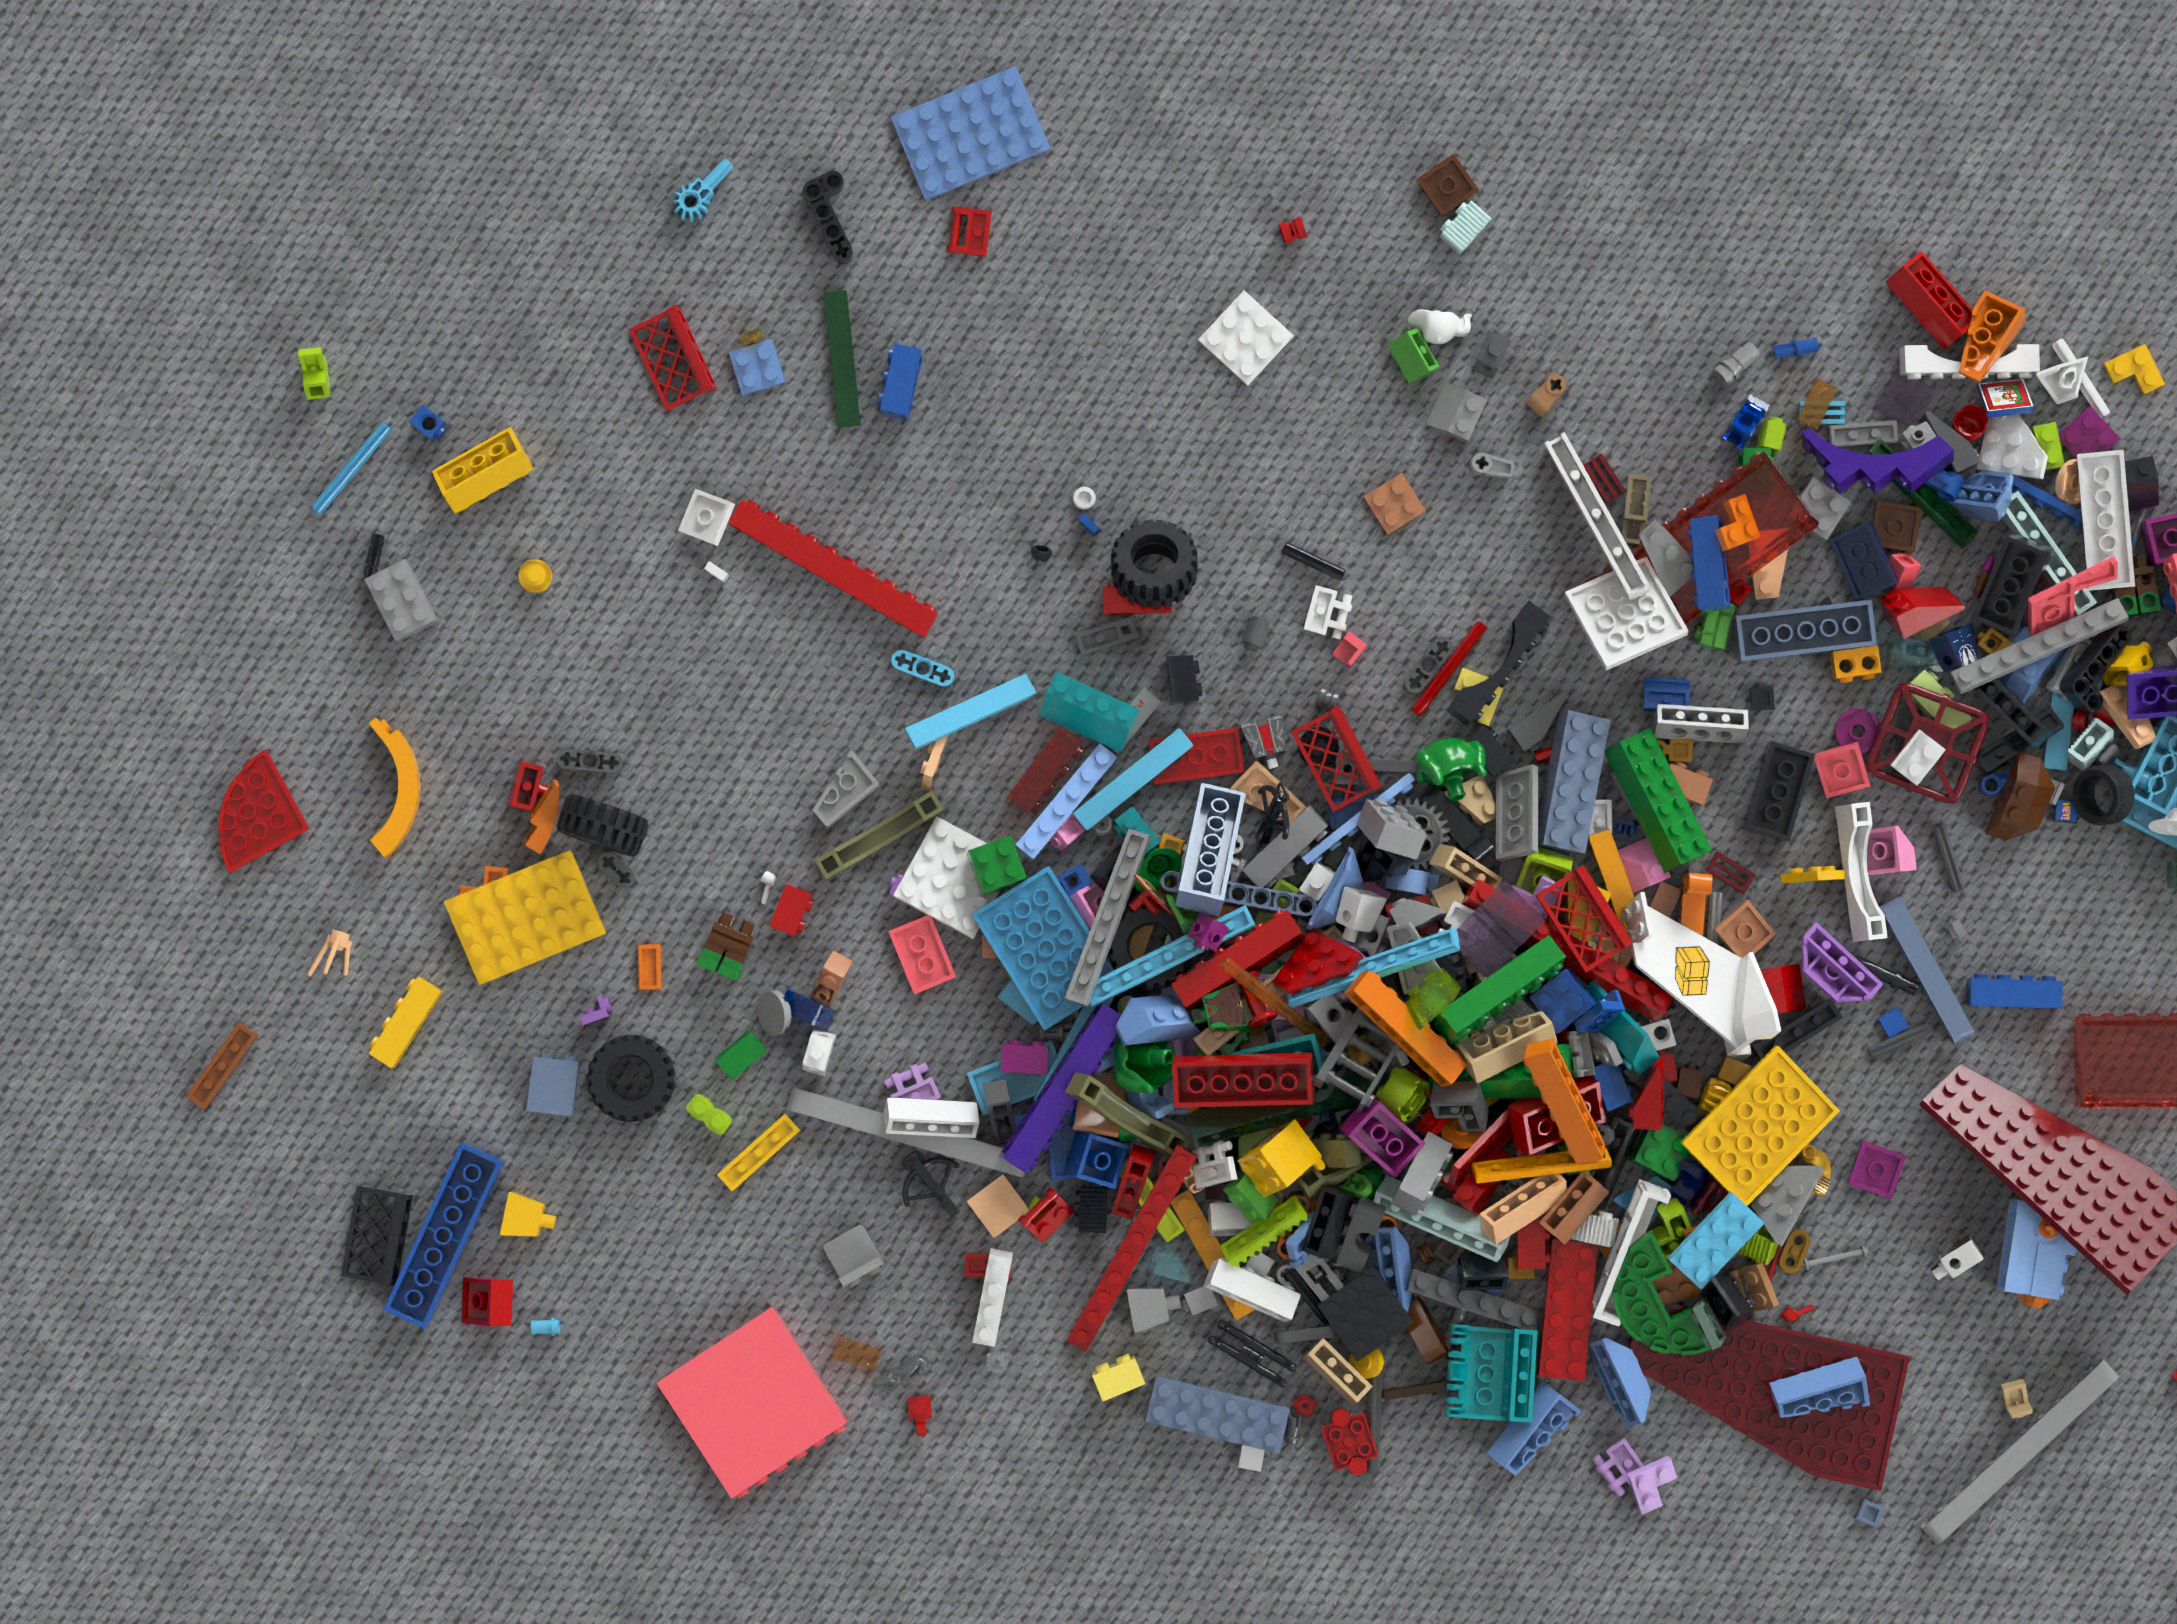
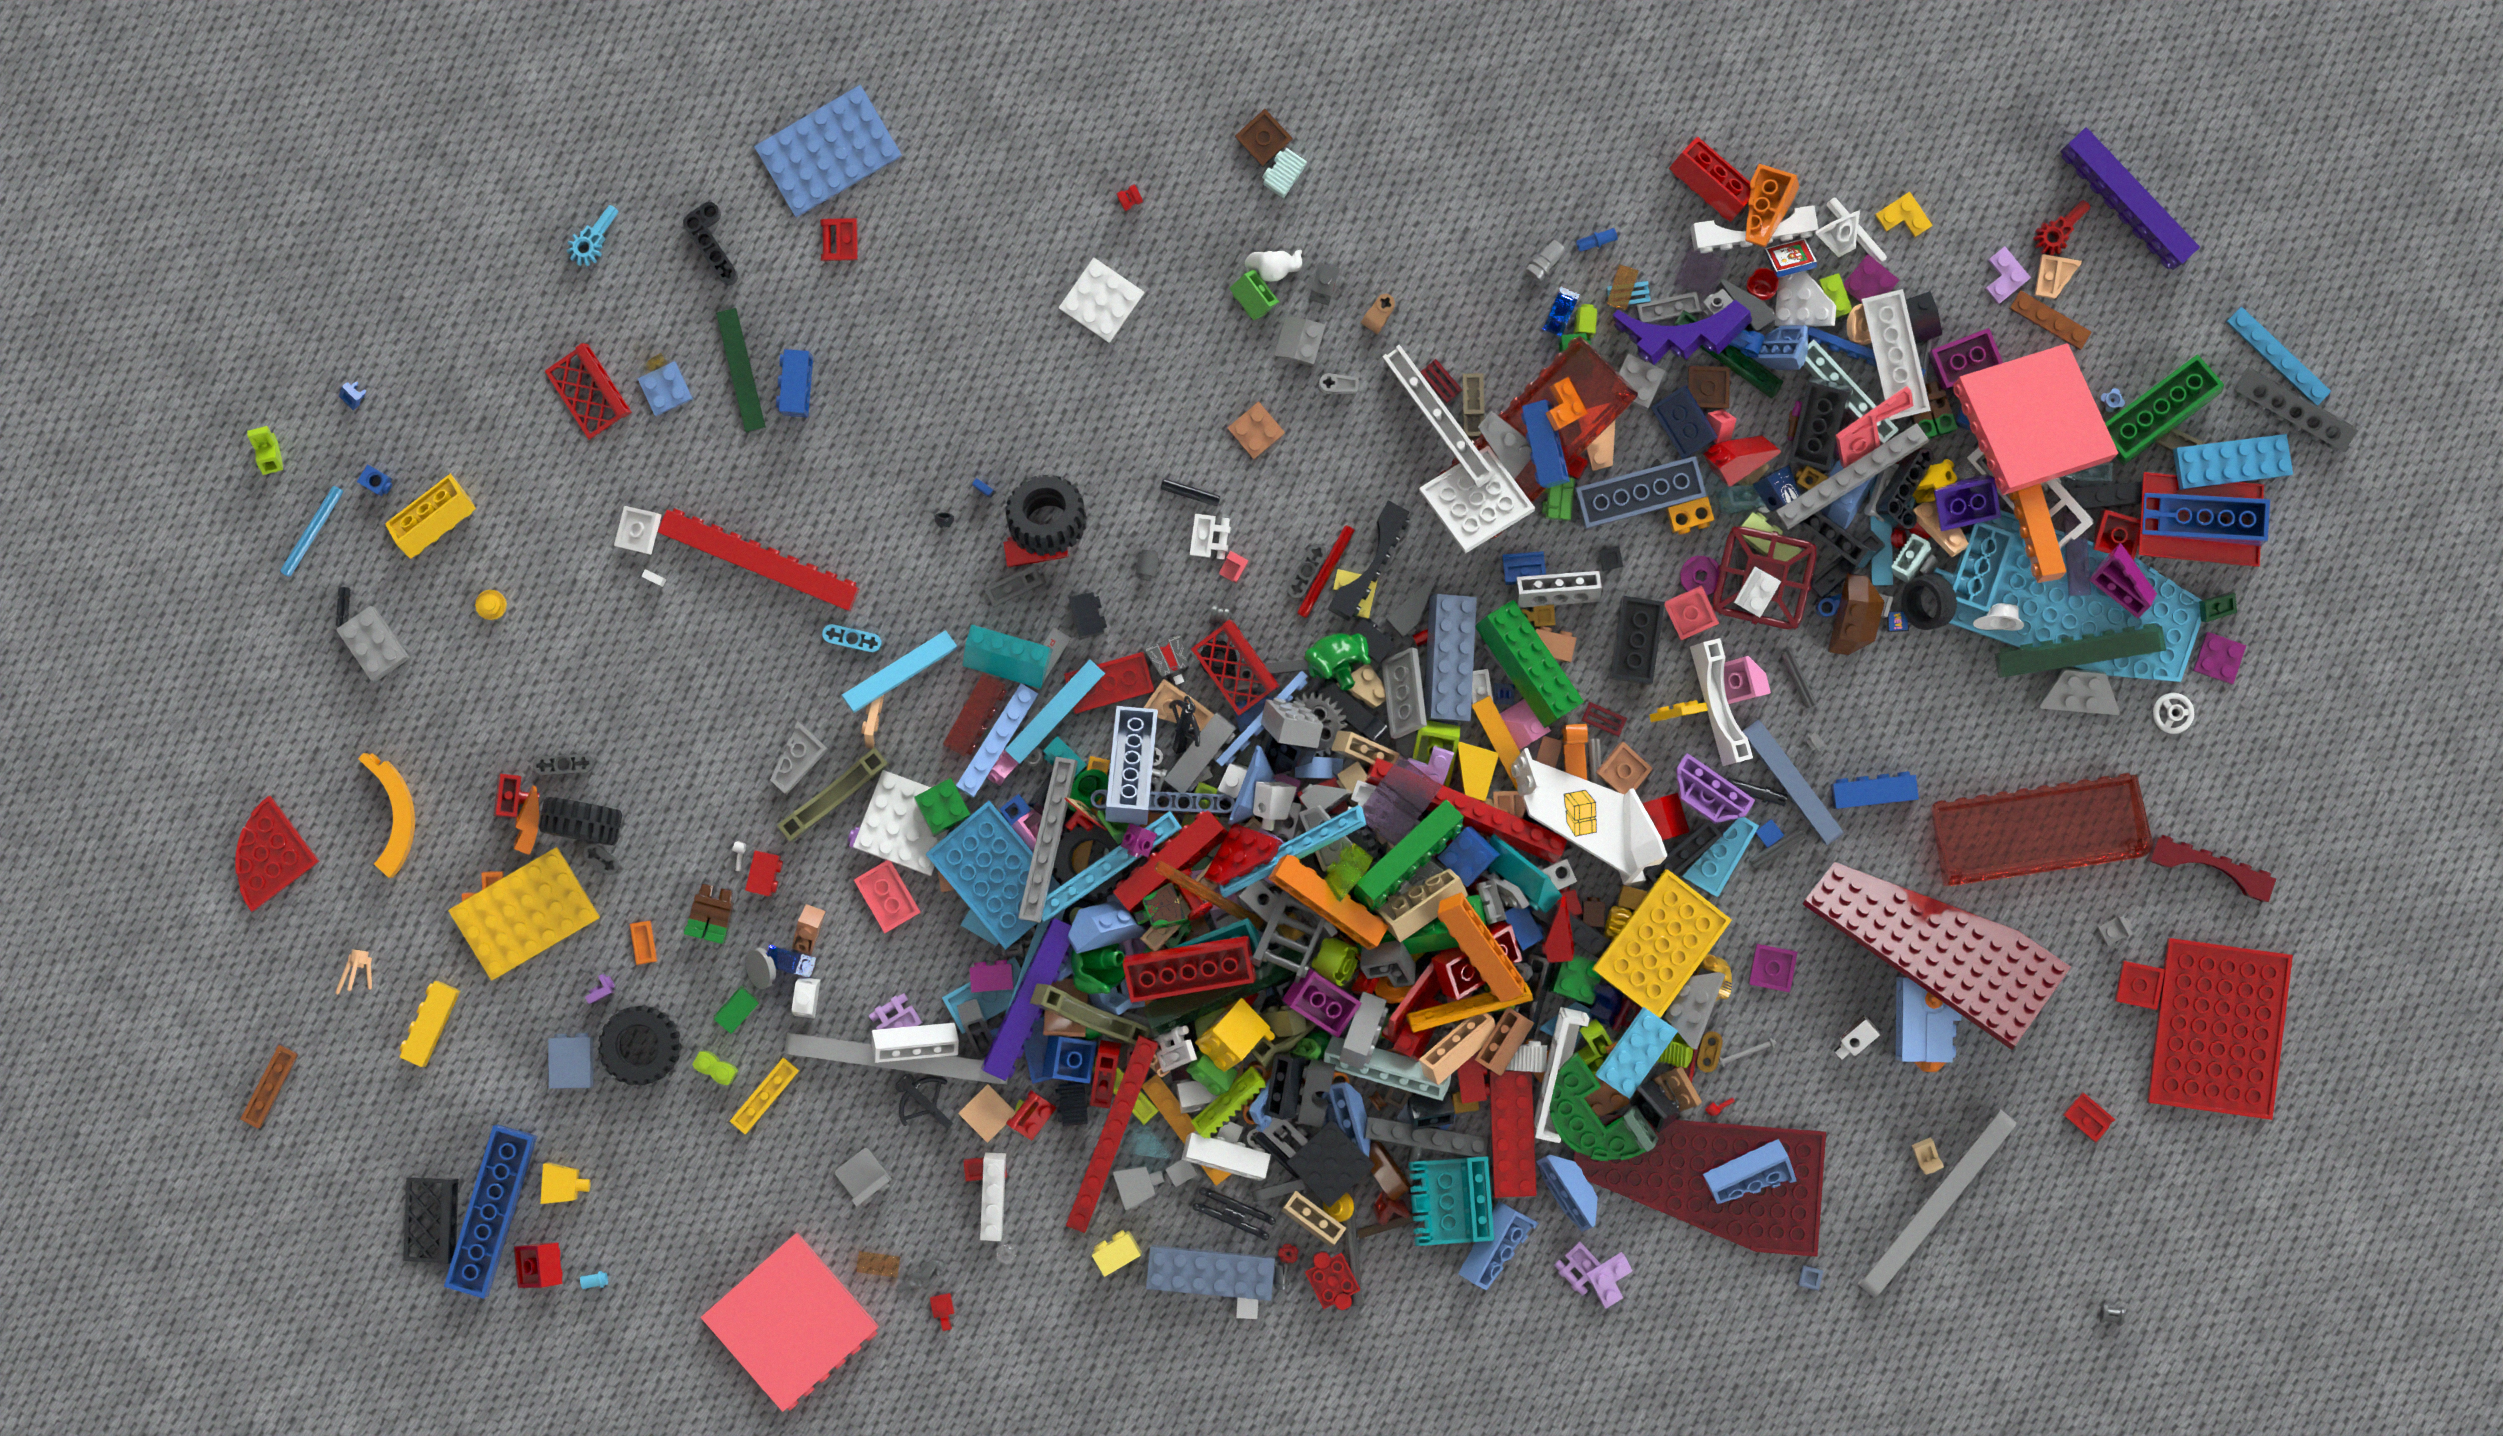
camera: 10 degrees left, 0 degrees up
(414, 327) = (350, 395): none -> blue tile
(1084, 498) = (976, 465): white tile -> none
(1417, 1370) = (1385, 1207): none -> clear red panel
(1600, 908) = (1487, 766): red fence -> none
(1601, 1013) = (1503, 863): blue bracket -> none
(1833, 1045) = (1719, 860): none -> medium azure wing

